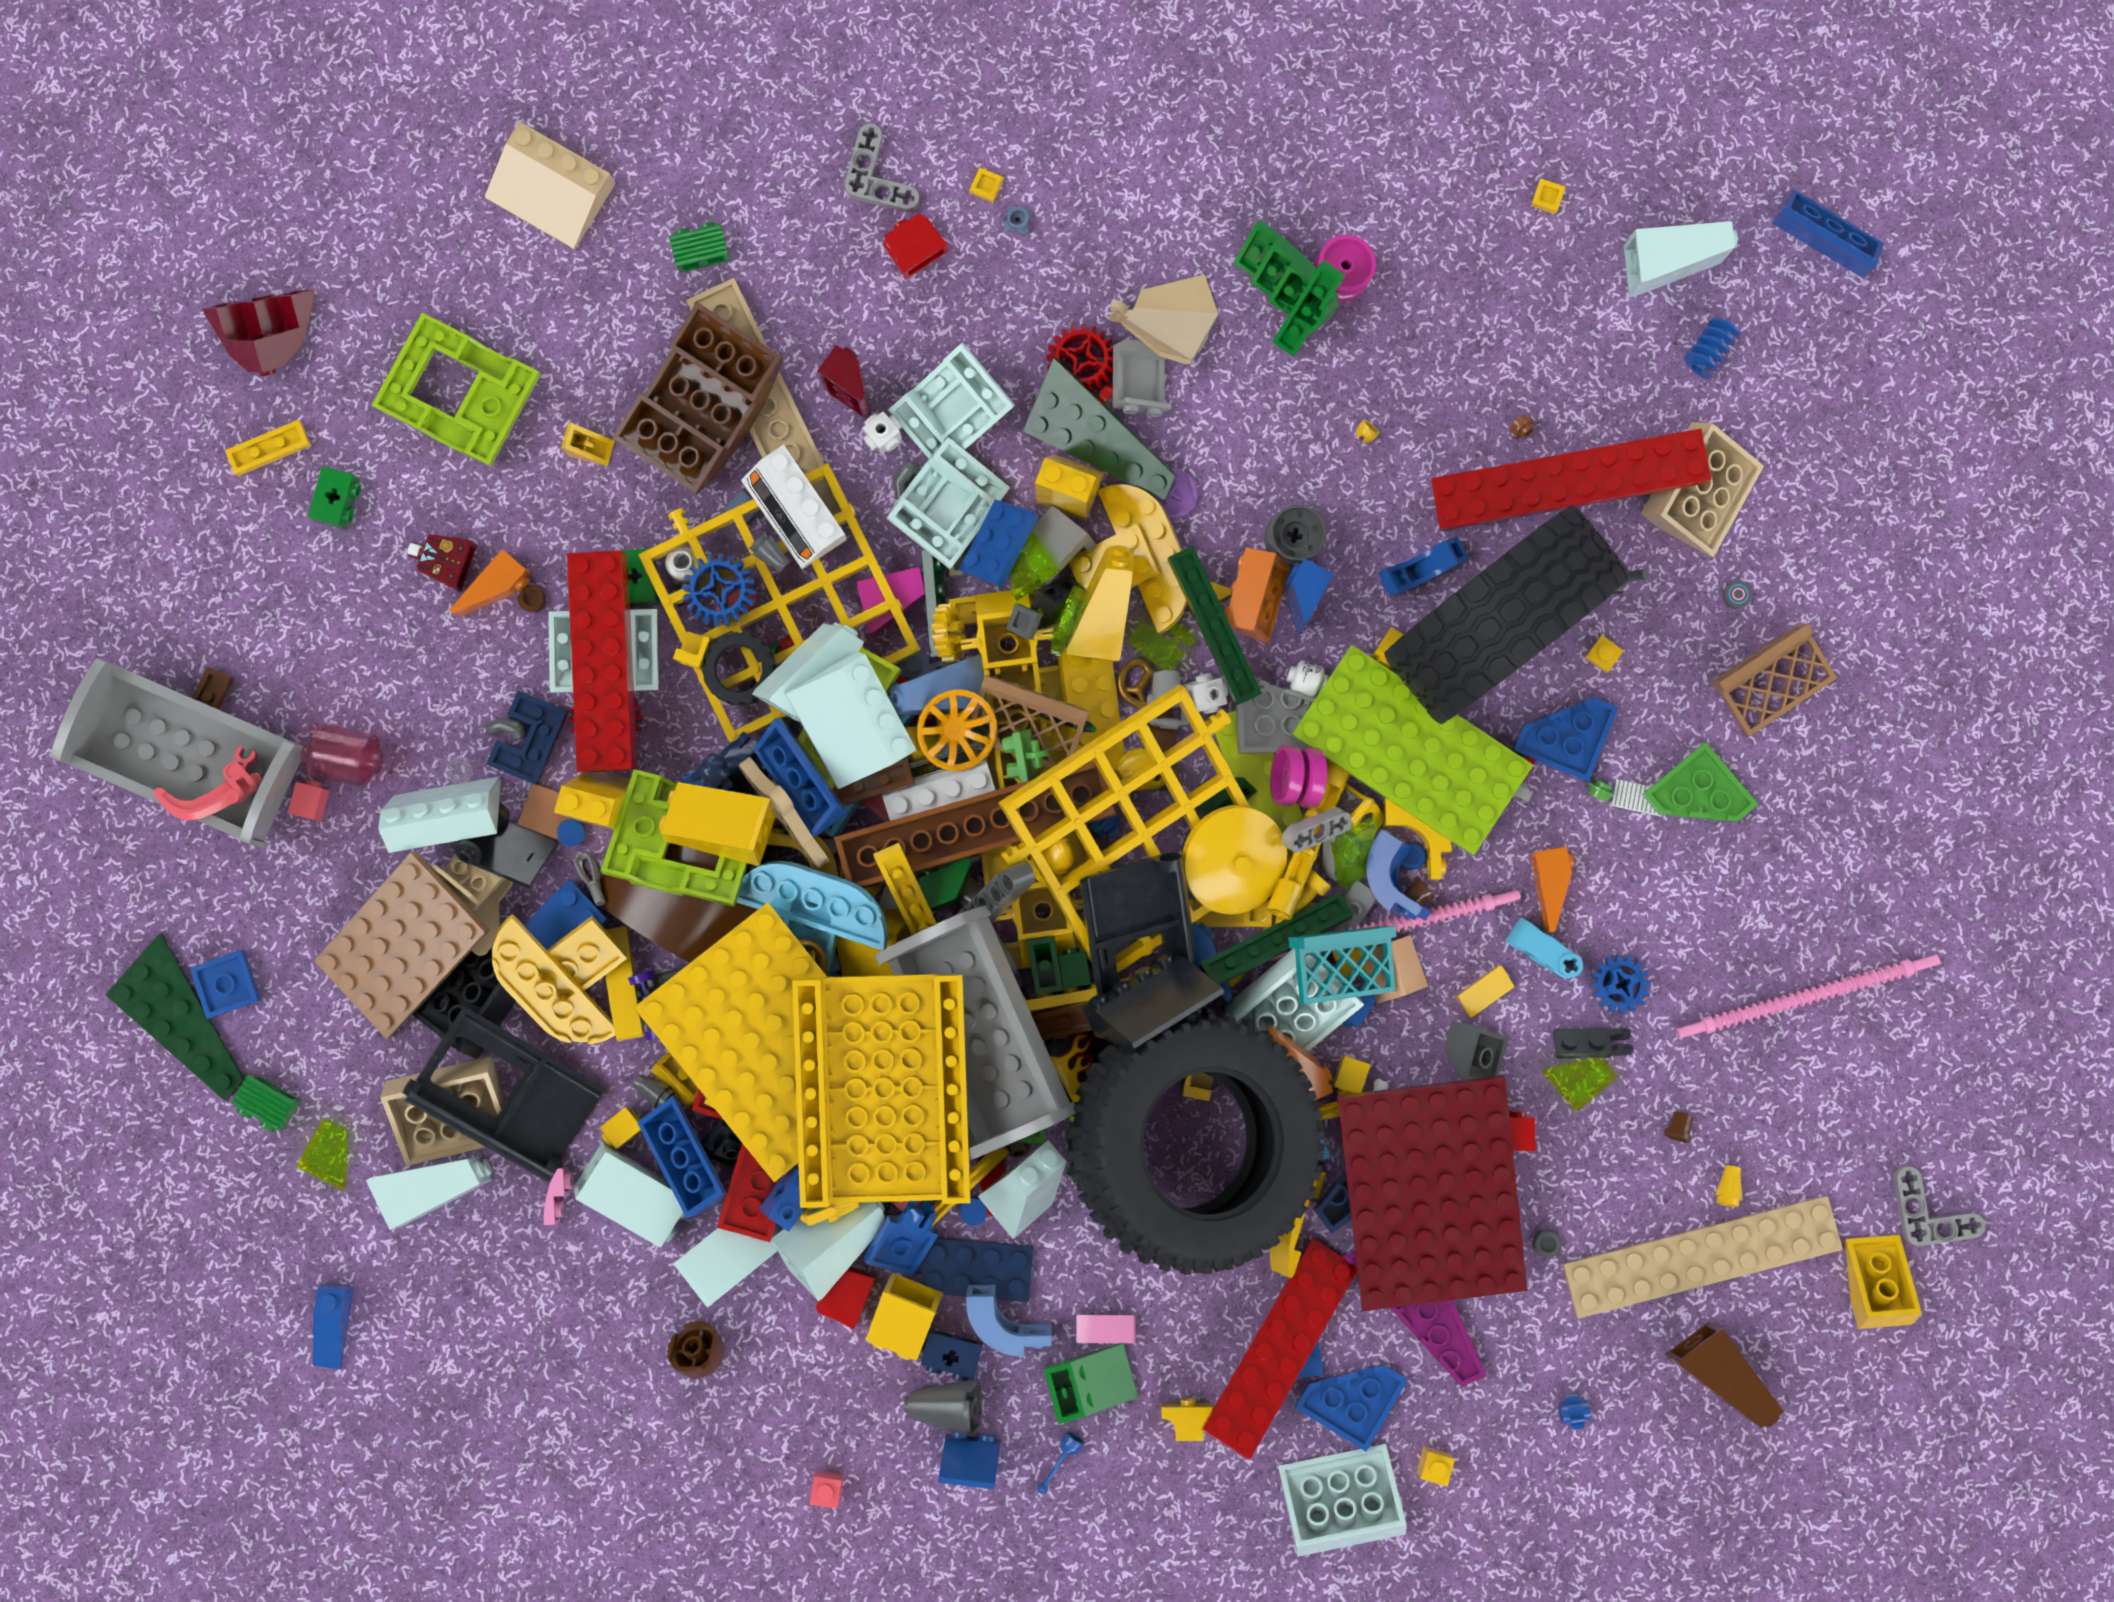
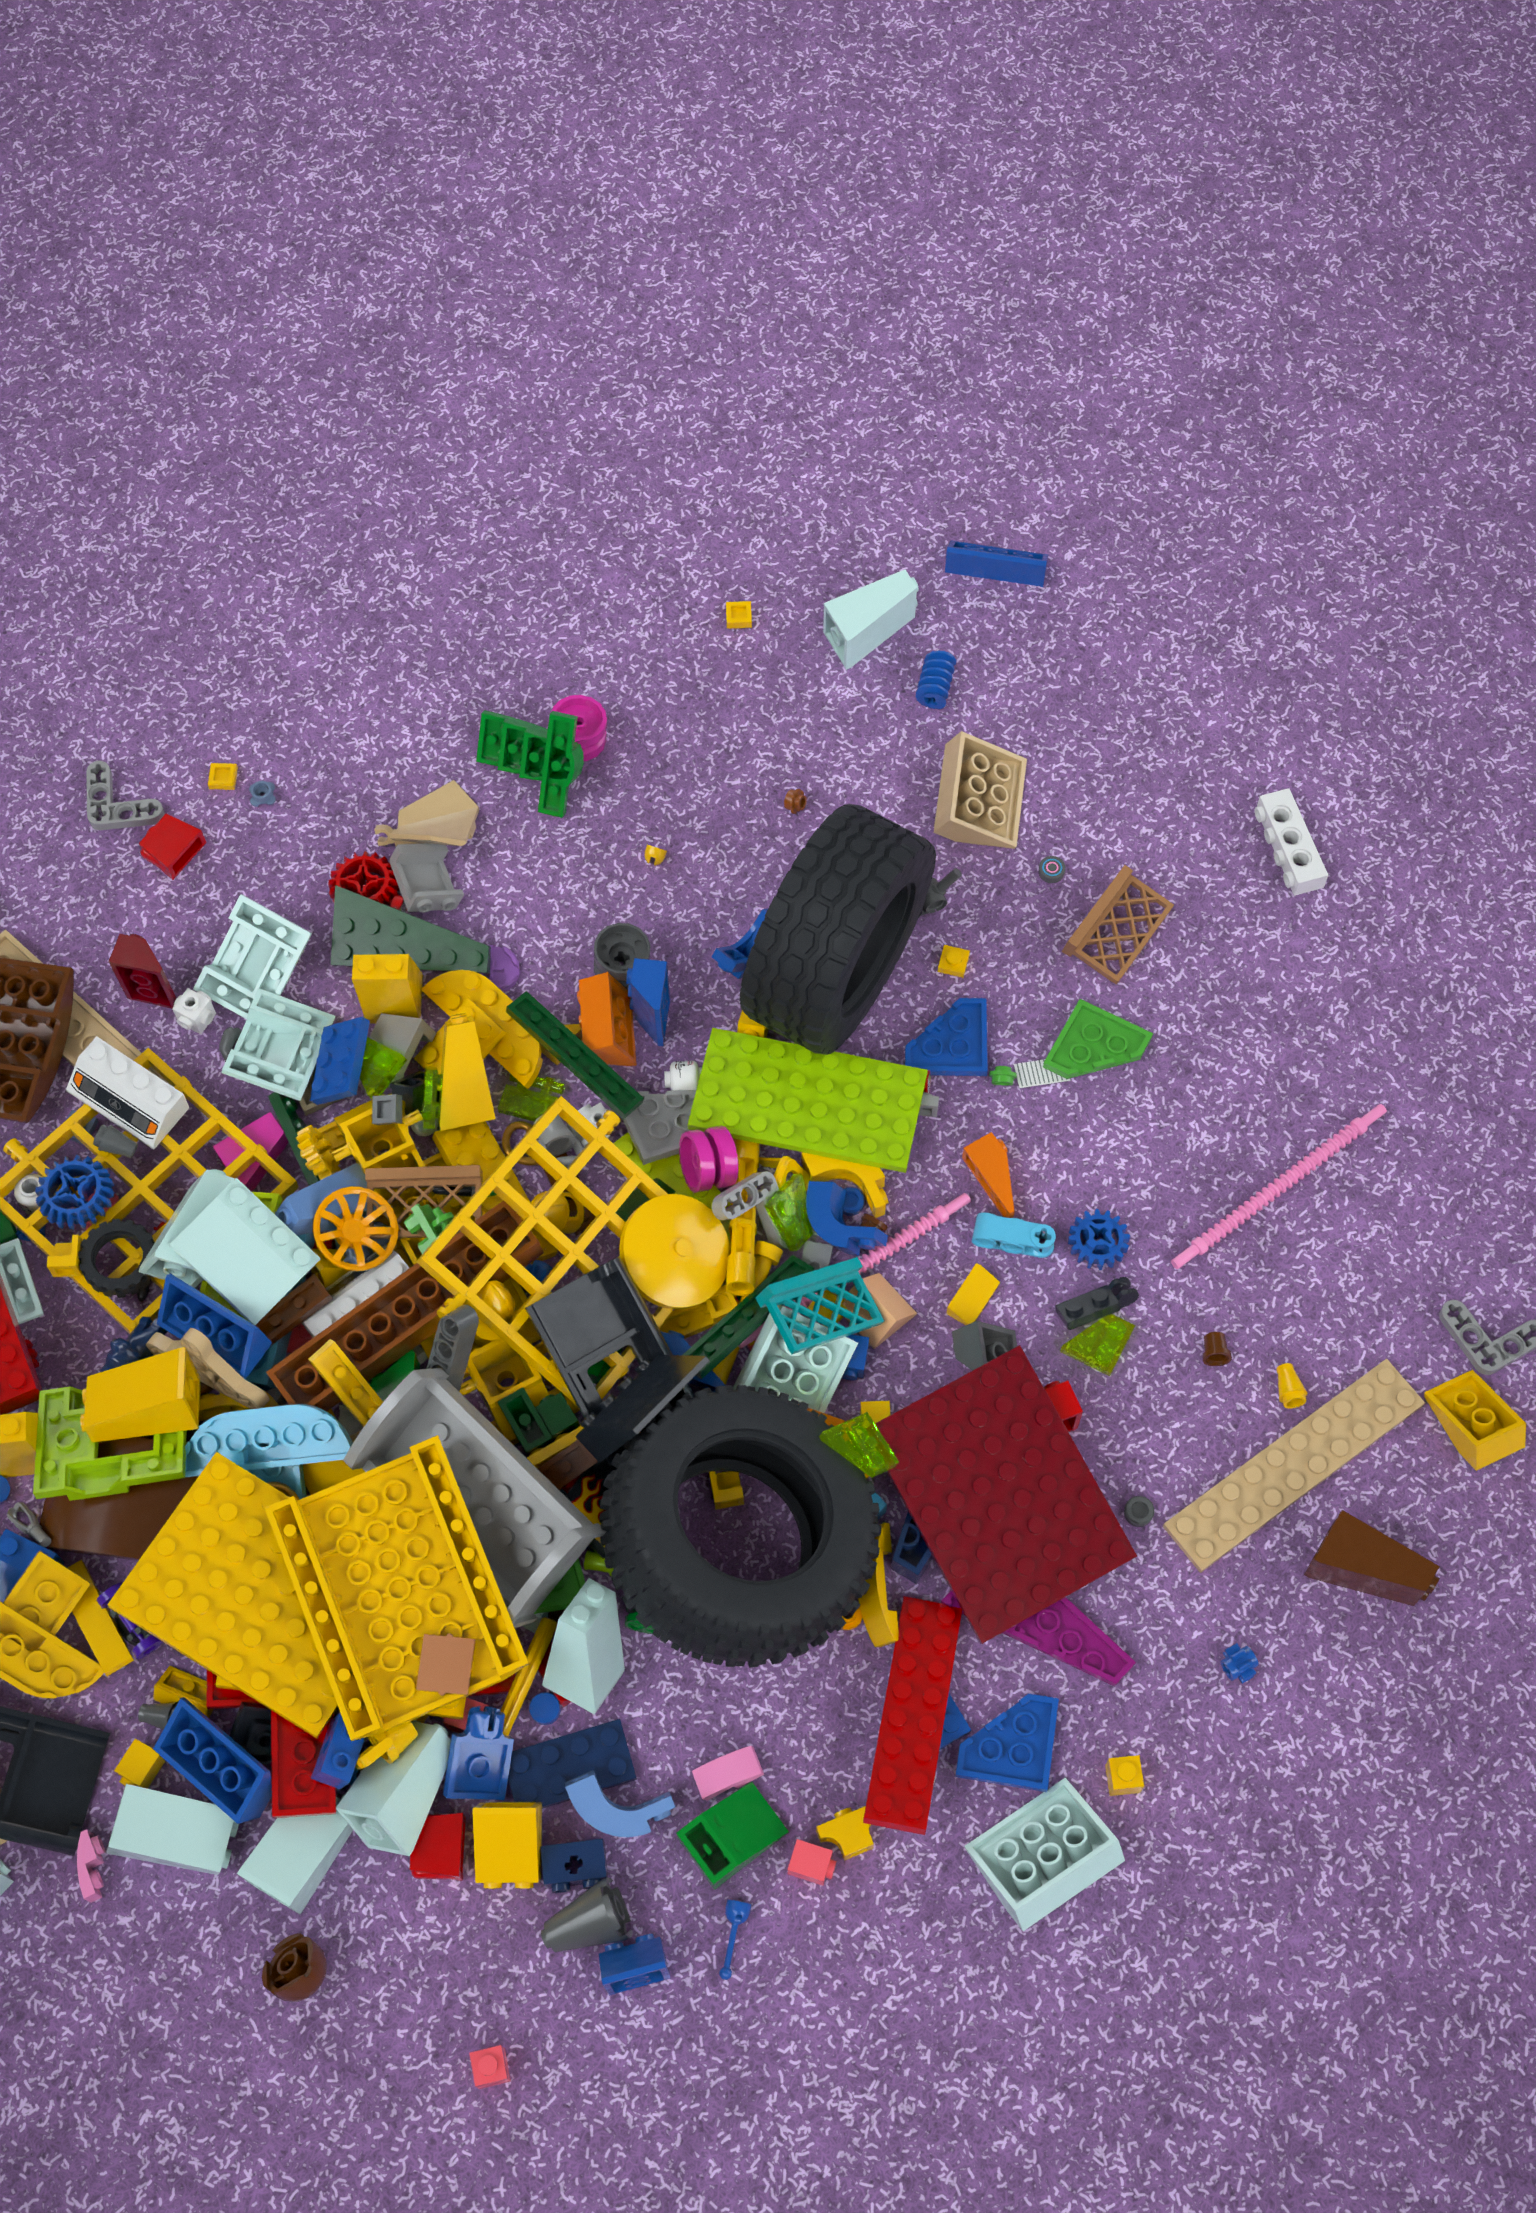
camera: 25 degrees left, 20 degrees down
(901, 1170) = (445, 1664): none -> nougat piece
(1146, 1431) = (811, 1862): none -> coral brick
(1328, 1116) = (861, 1445): none -> clear neon green wing
(1571, 478) = (895, 797): red plate -> none
(1990, 620) = (1282, 807): none -> white brick

